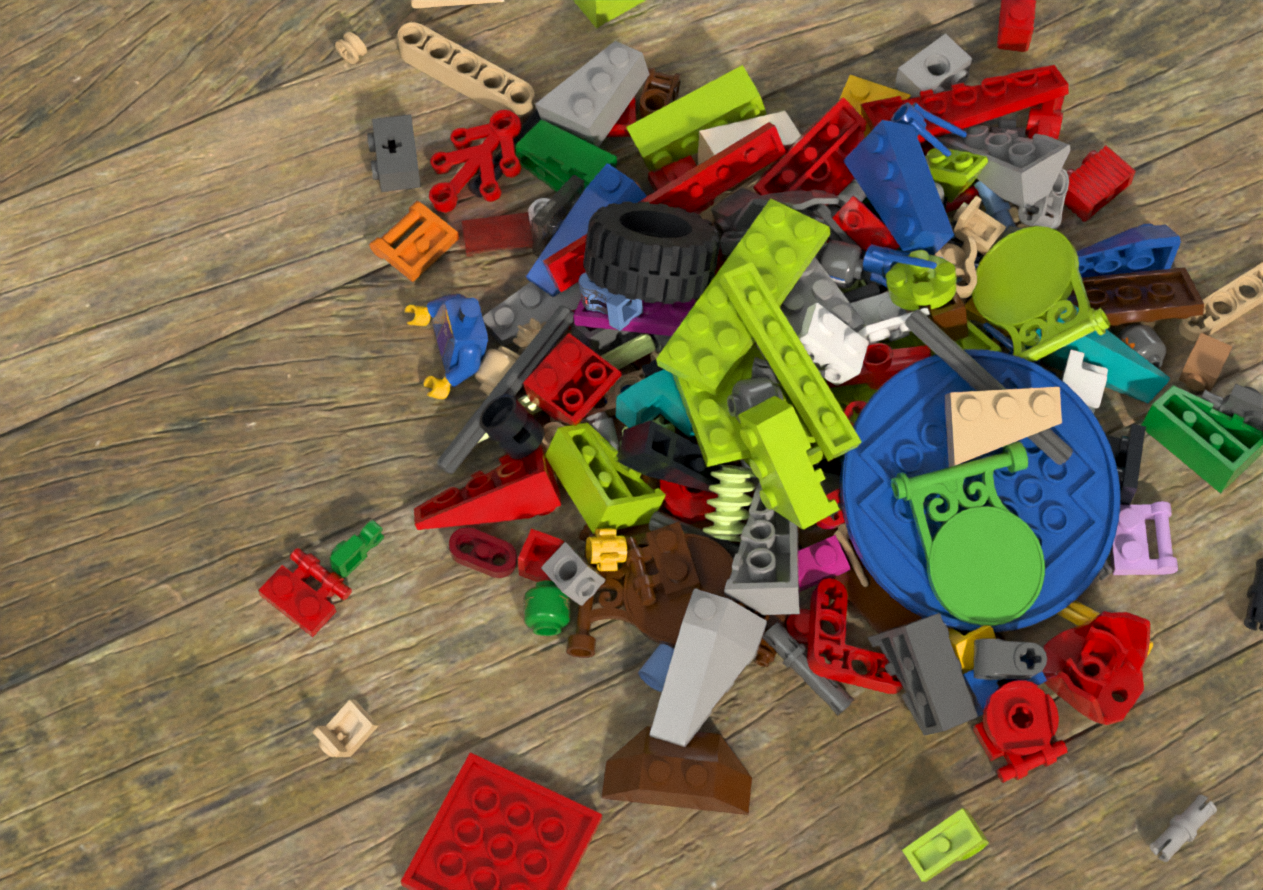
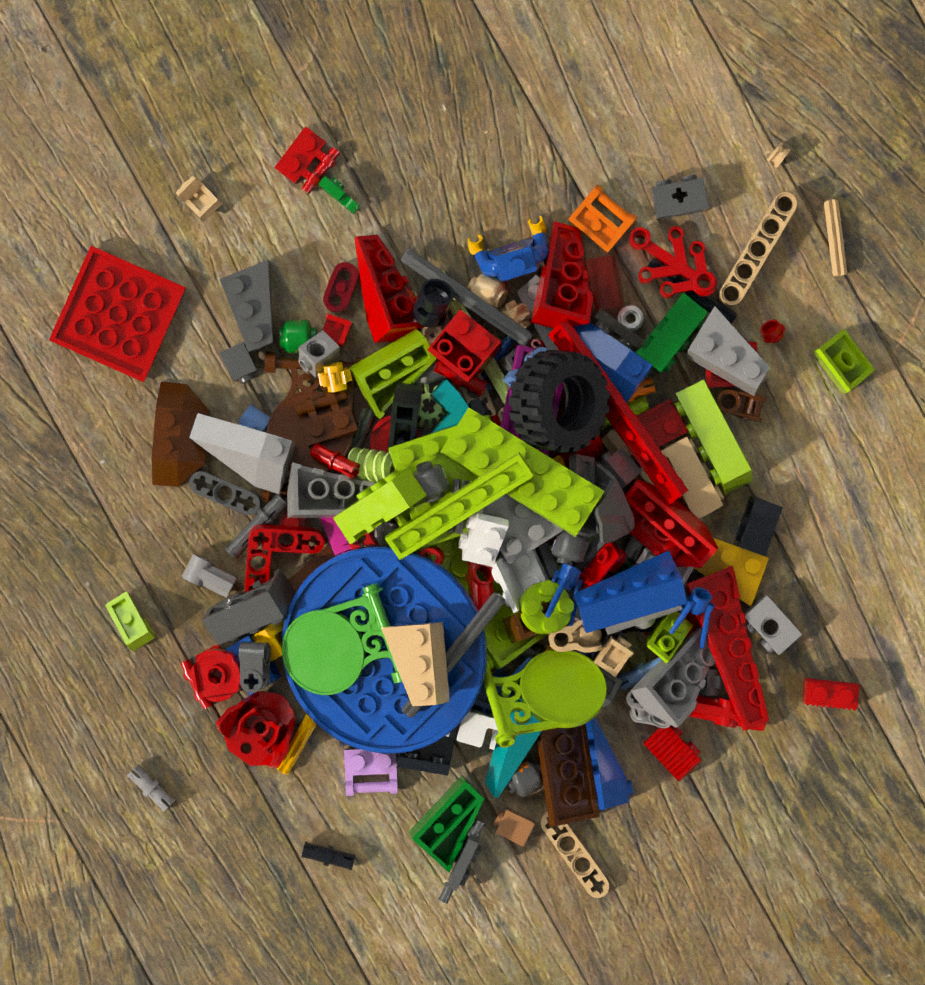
camera: 90 degrees right, 25 degrees up
(501, 280) = (563, 281): none -> red wedge
(501, 663) = (251, 303): none -> dark grey wedge
(568, 60) = (772, 331): none -> red plate
(580, 684) = (239, 363): none -> dark grey brick
(607, 403) = (476, 385): none -> red pin
(721, 545) = (335, 461): none -> red axle
(781, 696) = (210, 480): none -> dark grey beam
(808, 83) = (757, 526): none -> black hinge
(875, 743) = (203, 573): none -> light grey piece

